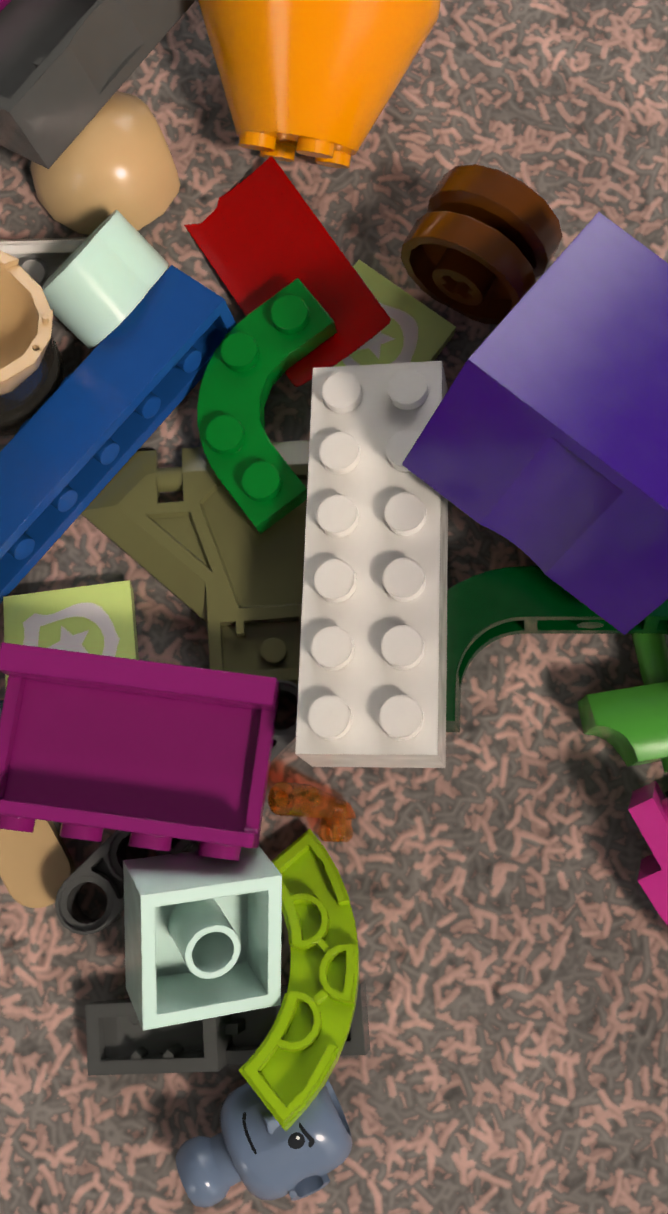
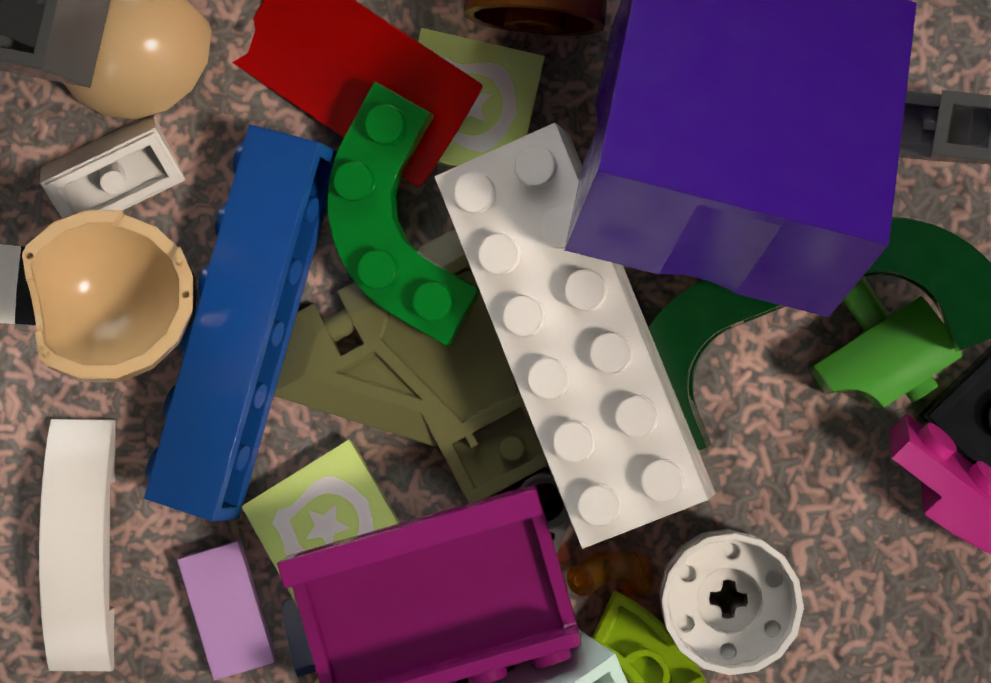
camera: 15 degrees left, 10 degrees up
(103, 280) = (190, 169): light aqua piece -> none
(454, 866) = (756, 628): none -> white wheel

